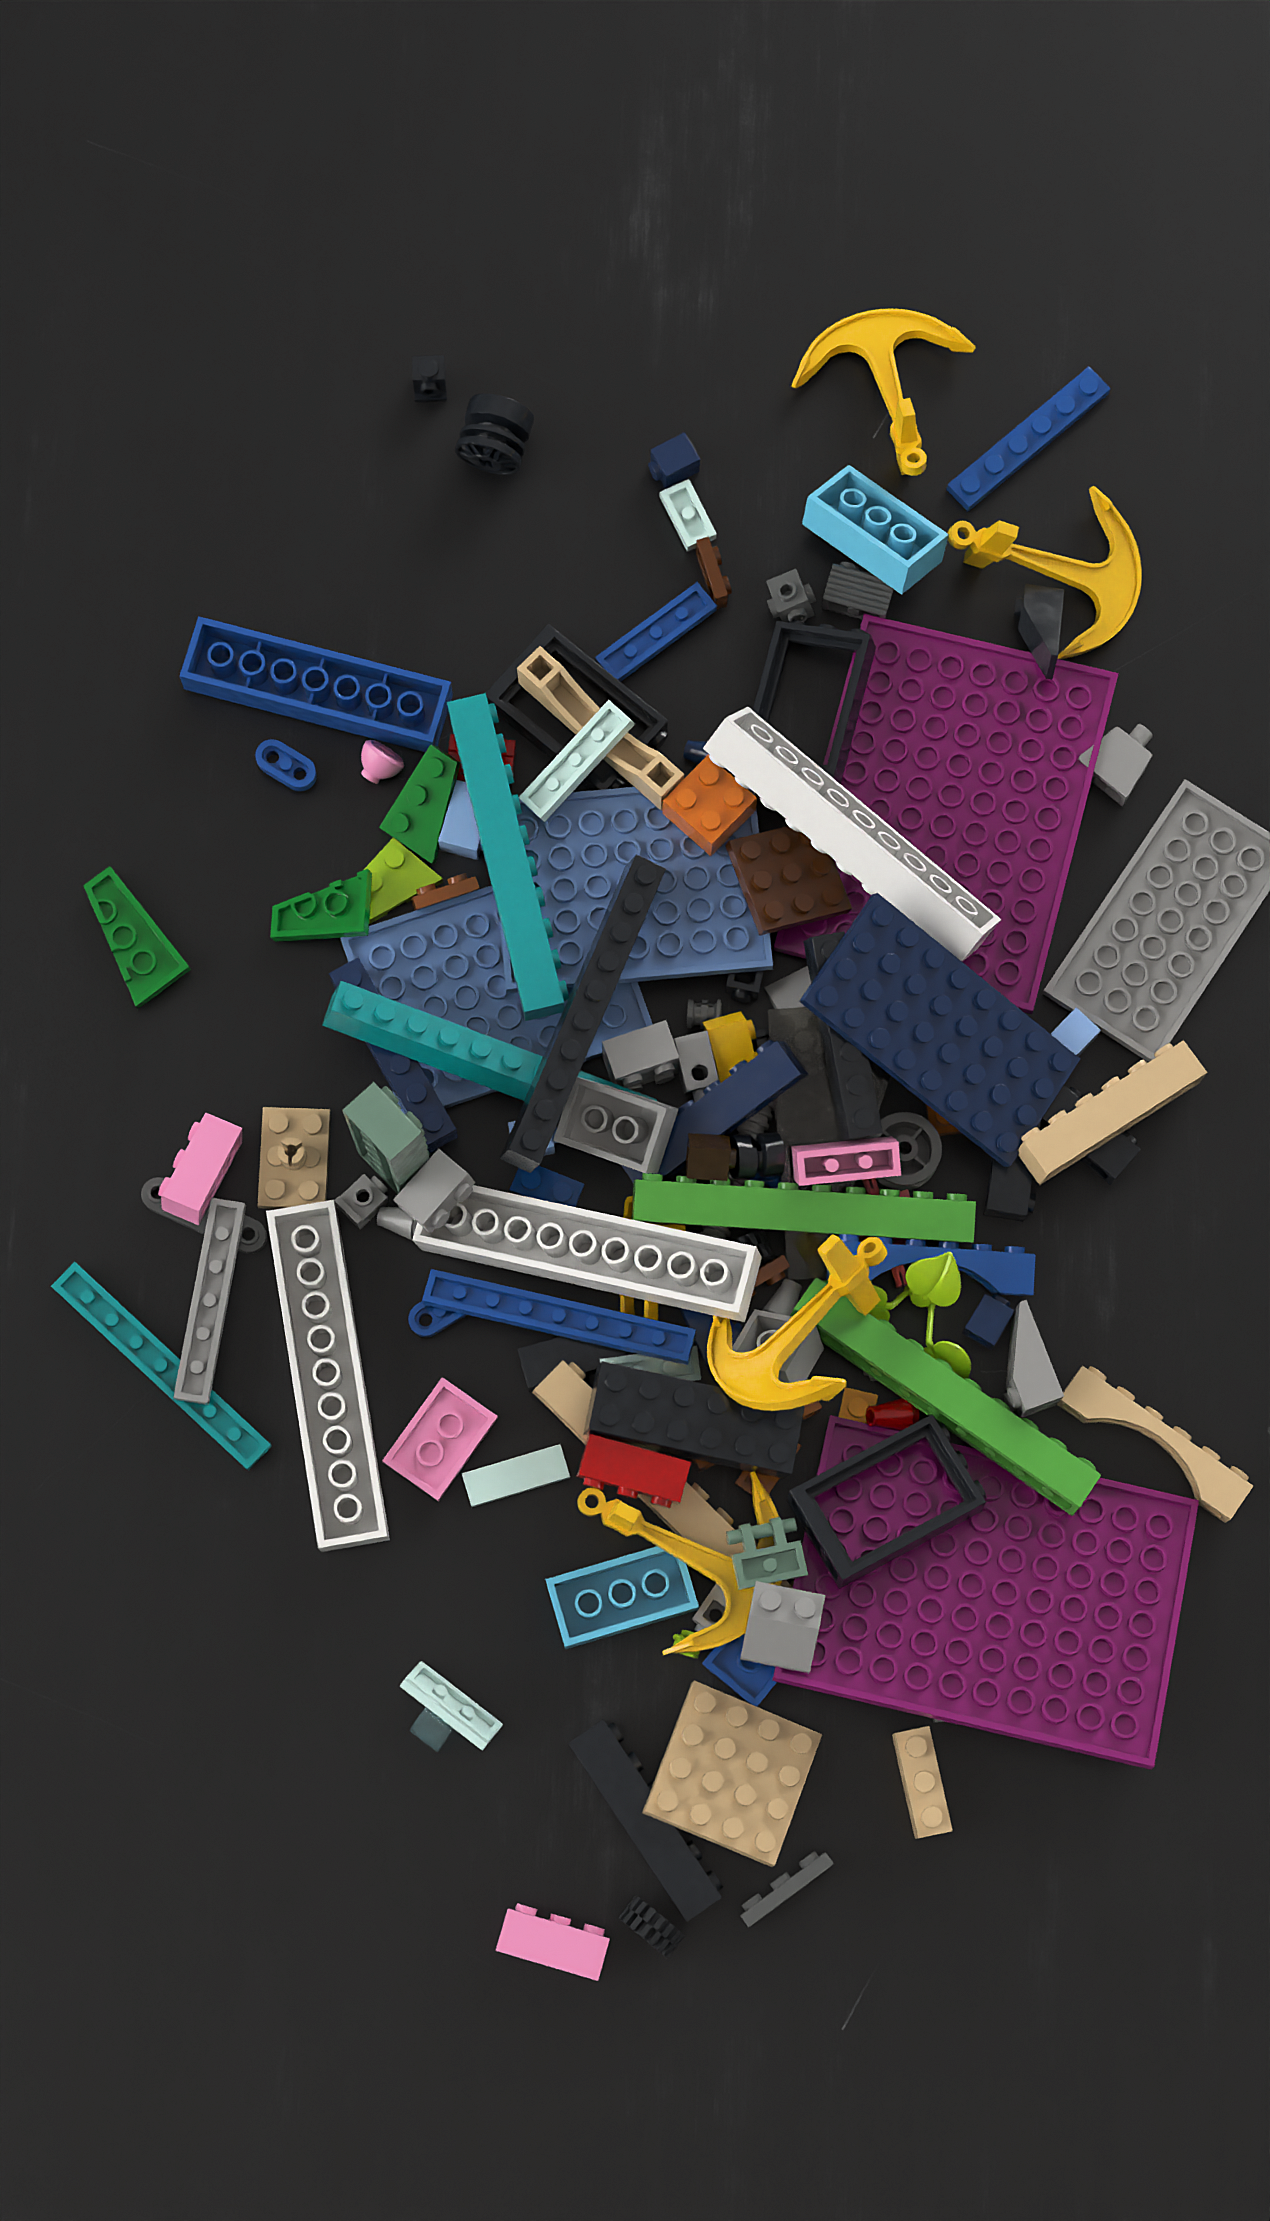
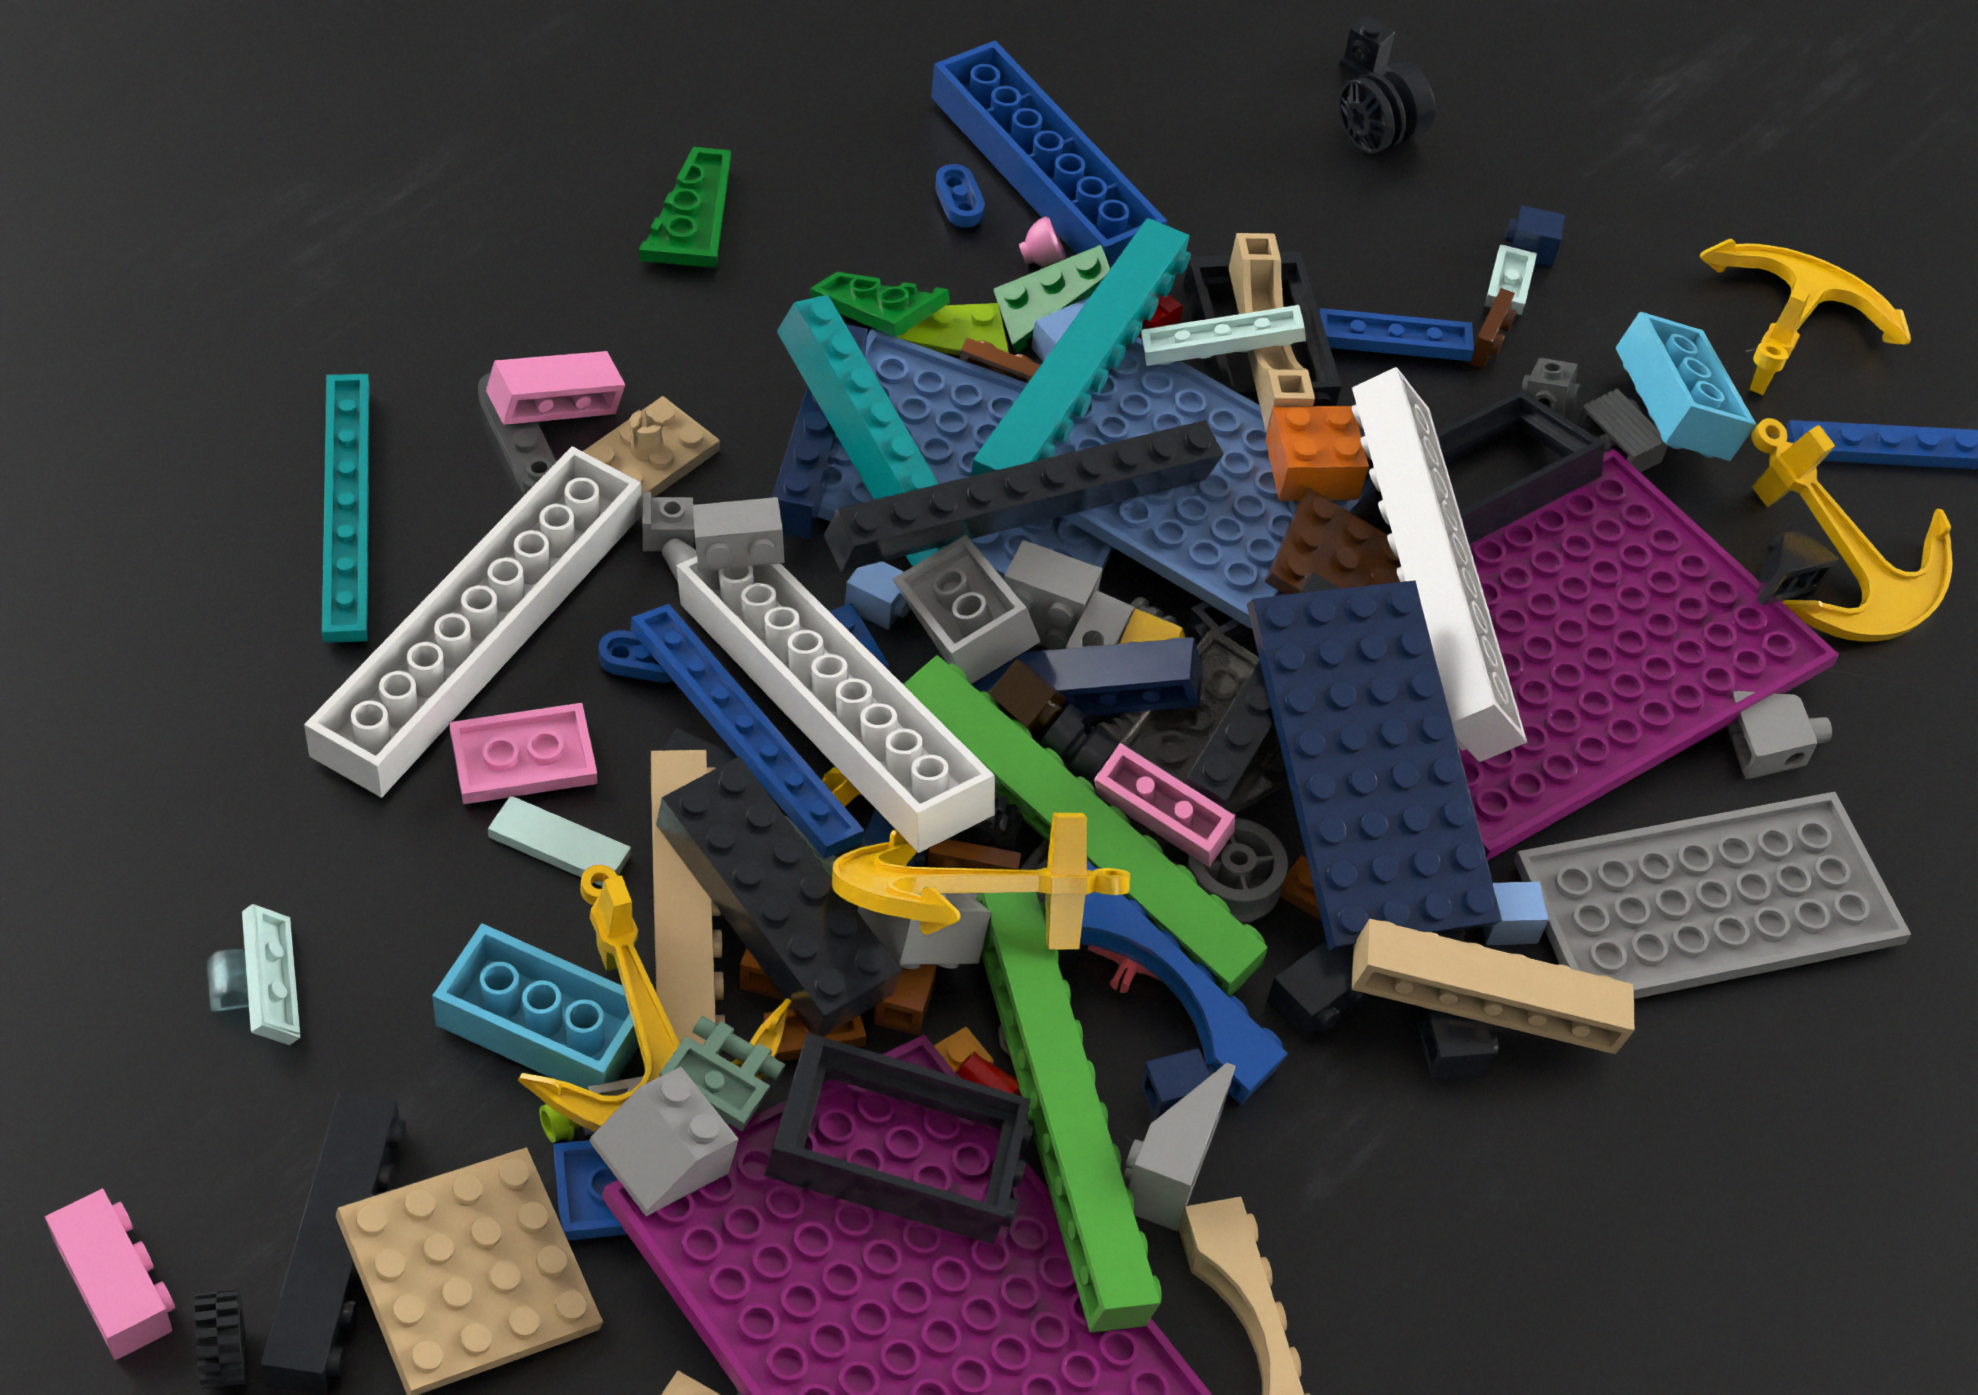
camera: 35 degrees right, 25 degrees down
(209, 1301) = (442, 480): light grey plate -> none
(387, 1136) = (738, 413): sand green brick -> none
(633, 1471) = (670, 888): red brick -> none
(931, 1284) = (1153, 958): lime plant -> none

